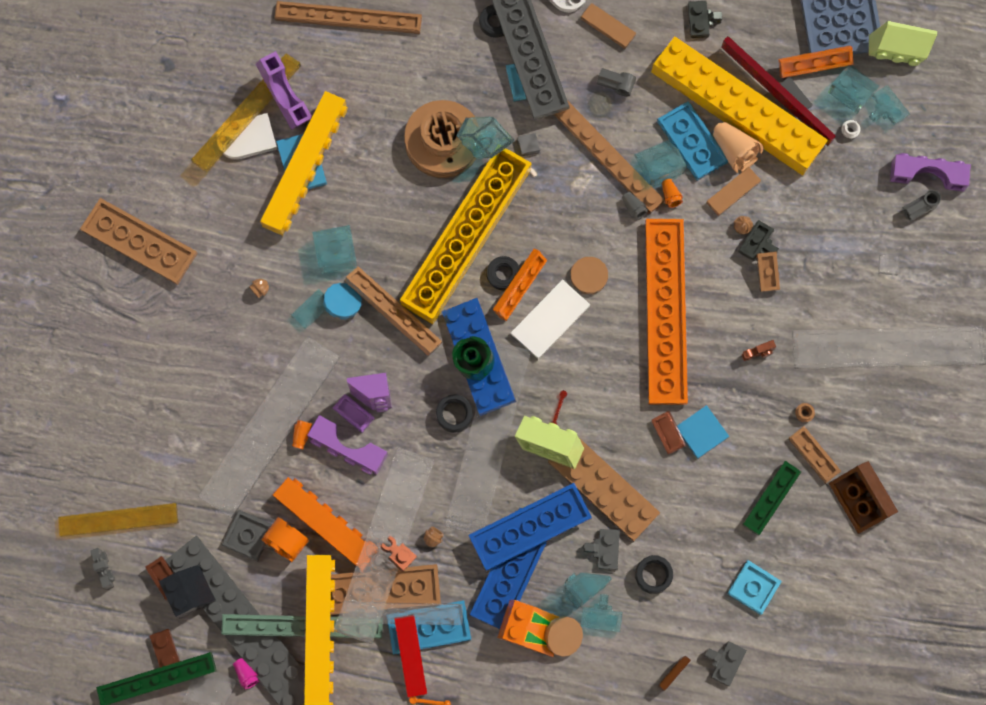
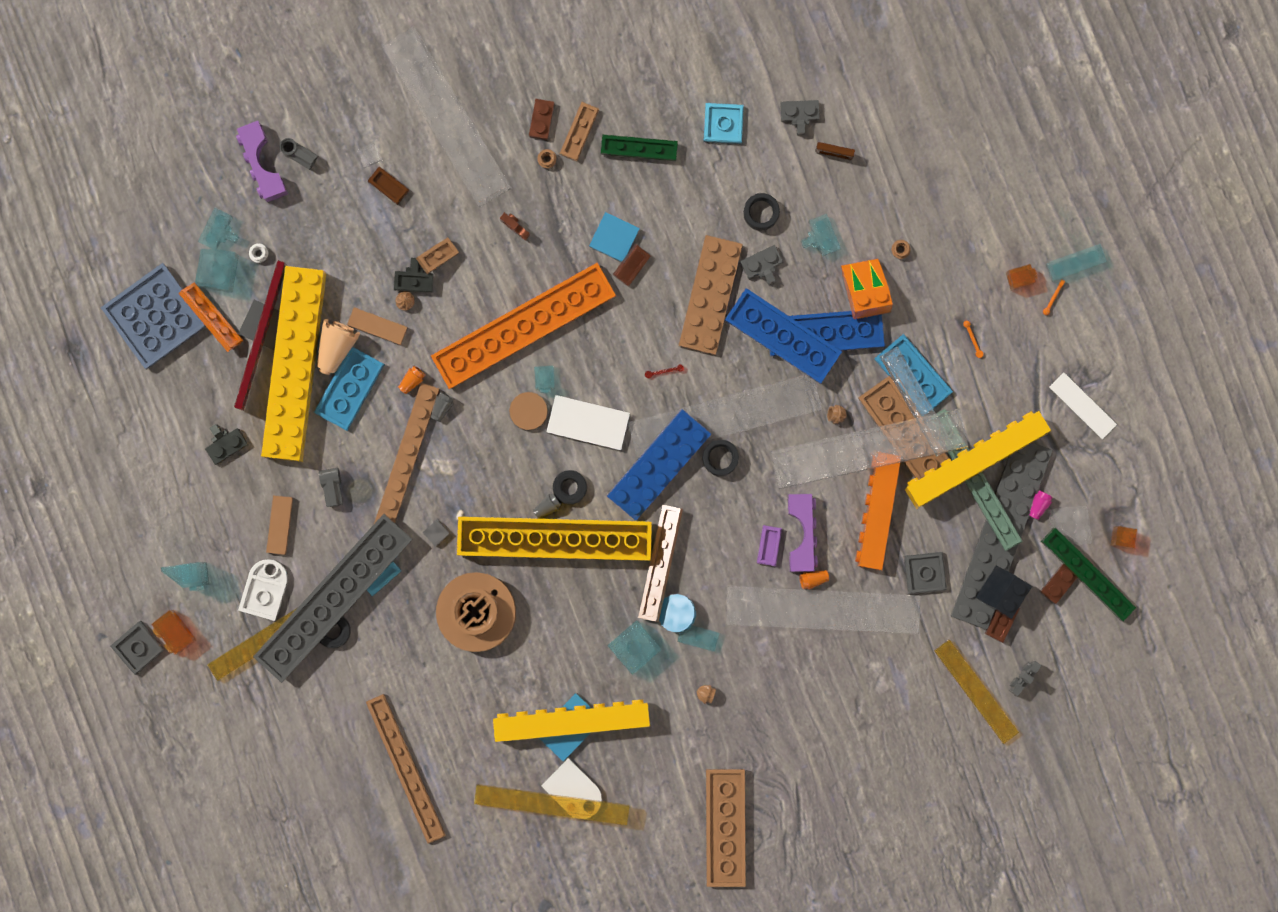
camera: 120 degrees left, 10 degrees up
(285, 539) = (913, 536): orange brick -> none
(291, 106) = (521, 772): medium lavender arch -> none
(372, 391) = (746, 535): medium lavender slope -> none
(400, 556) = (873, 428): plate -> none
(410, 656) = (947, 374): red tile -> none
(470, 348) = (660, 456): dark green brick -> none
(484, 136) = (461, 570): clear light blue slope -> none
(497, 245) = (547, 506): none -> dark grey cone
(520, 284) = (573, 465): orange tile -> none
(549, 441) = (701, 359): yellowish green brick -> none
(556, 682) = (905, 245): none -> medium nougat plate
(563, 636) = (857, 257): medium nougat tile -> none
(583, 587) = (809, 259): clear light blue slope -> none
(609, 303) = (544, 378): none -> clear light blue bracket
(660, 163) = (387, 405): clear light blue slope -> none
(843, 428) = (541, 119): none -> copper plate
(852, 266) = (388, 185): none -> reddish brown tile
(863, 497) = (594, 71): reddish brown slope -> none
(901, 43) = (154, 247): yellowish green slope -> none

